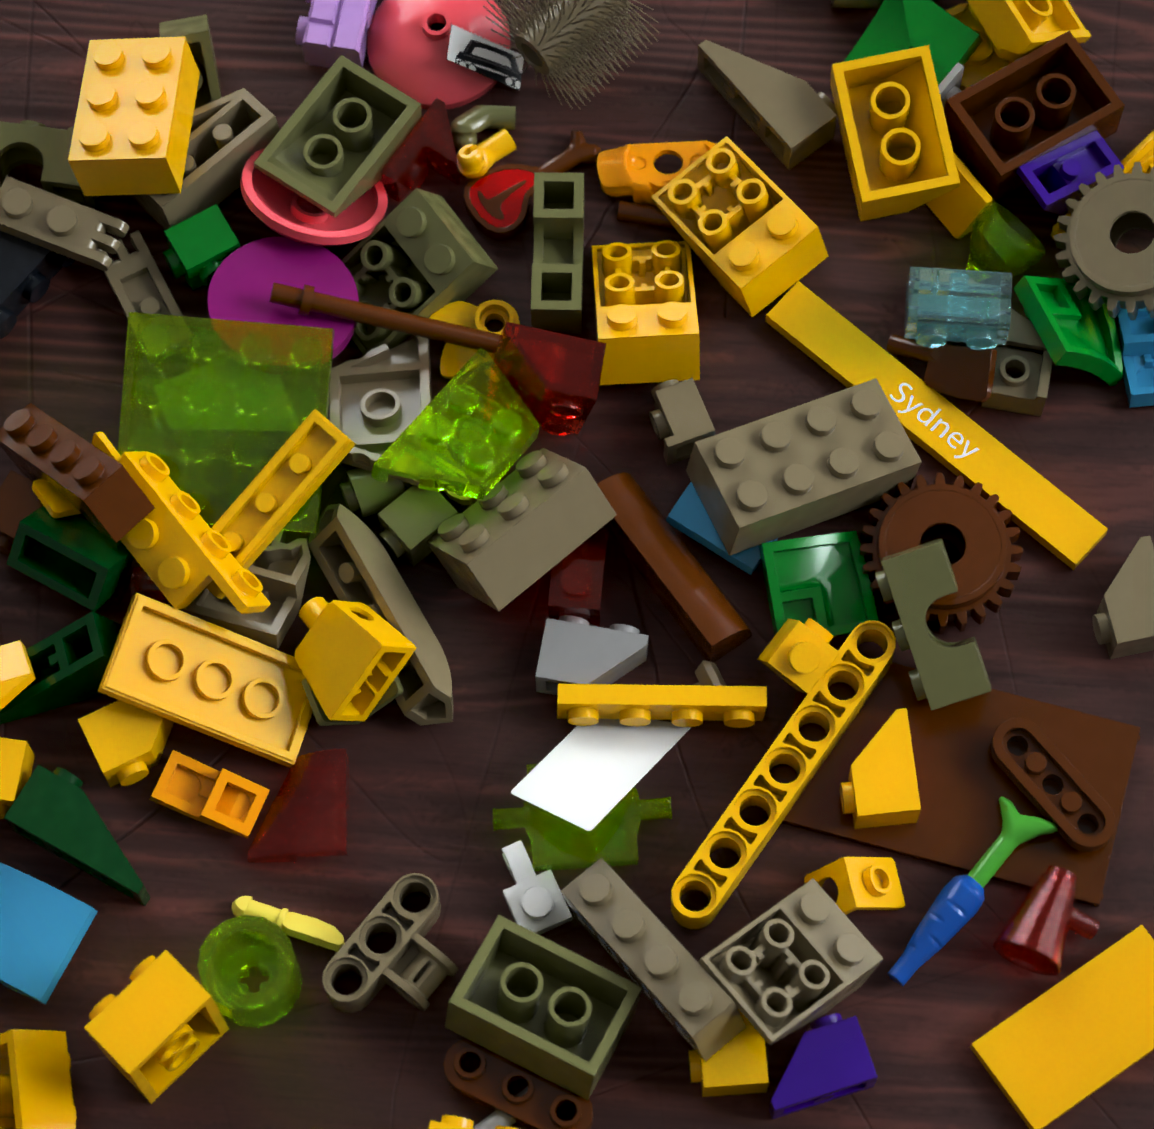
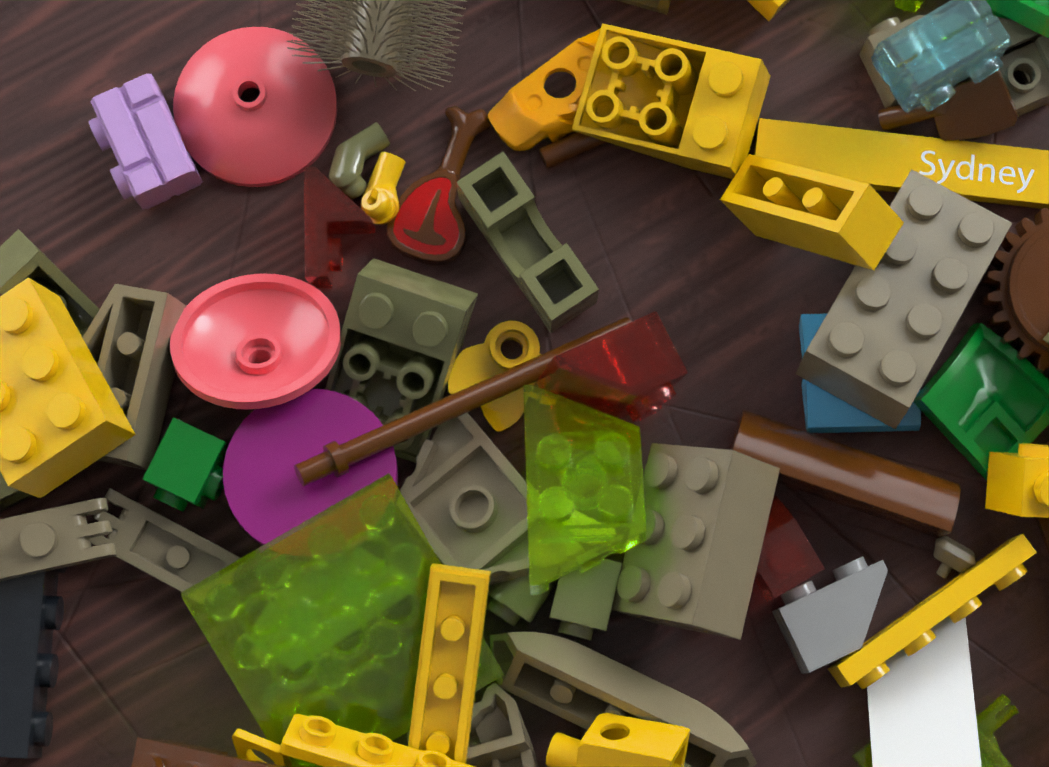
camera: 35 degrees left, 10 degrees up
(340, 137) = (243, 271): olive slope -> none
(485, 57) = (315, 94): sticker -> none
(646, 312) = (643, 240): yellow slope -> none
(679, 418) = (751, 325): dark tan brick -> none
(776, 355) = (812, 211): none -> yellow brick

